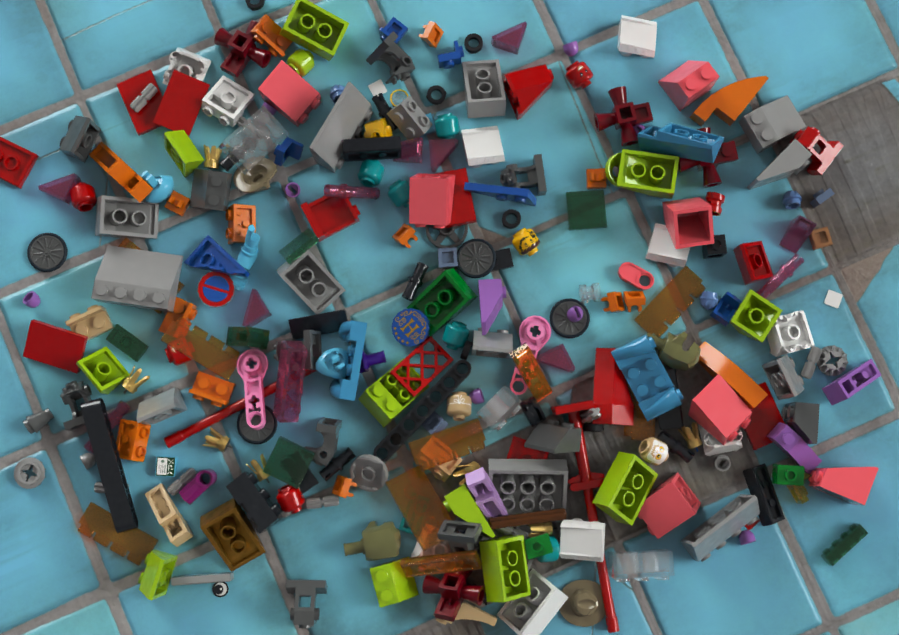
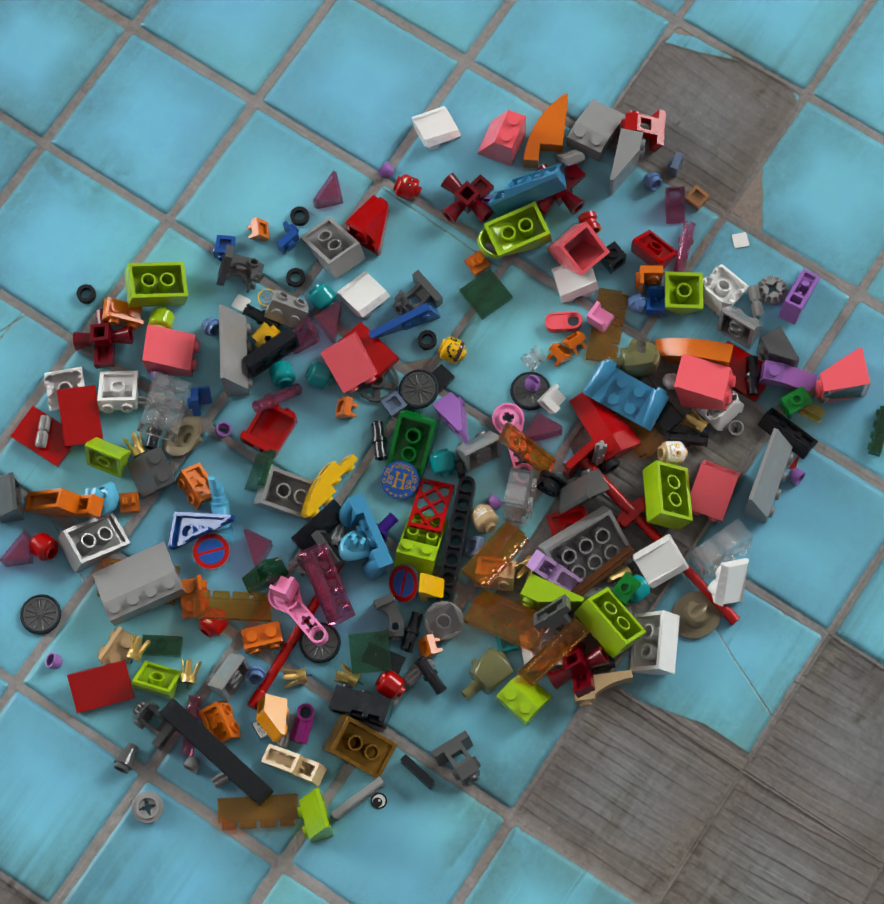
camera: 25 degrees left, 10 degrees down
(99, 336) = (135, 651): none -> pearl gold piece
(175, 464) = (272, 716): none -> light orange slope
(185, 419) = (255, 675): none -> medium blue plate
(254, 362) = (285, 588): none -> bright pink panel
(265, 587) = (417, 771): none -> black tile
(328, 343) = (338, 534): none -> light grey piece
(328, 512) = (430, 675): none -> black pin
(338, 294) = (322, 486): none -> yellow slope
(356, 419) = (404, 583): none -> piece
(375, 439) = (430, 587): none -> yellow slope
(582, 338) = (552, 399): none -> white panel
(628, 598) = (729, 582): none -> white slope
(668, 293) = (599, 317): none -> bright pink panel
(693, 386) = (669, 380): none -> white piece
(734, 136) = (570, 157): none -> light grey tile
(734, 283) = (648, 276): none -> orange bracket
(766, 427) = (752, 375): none -> black pin

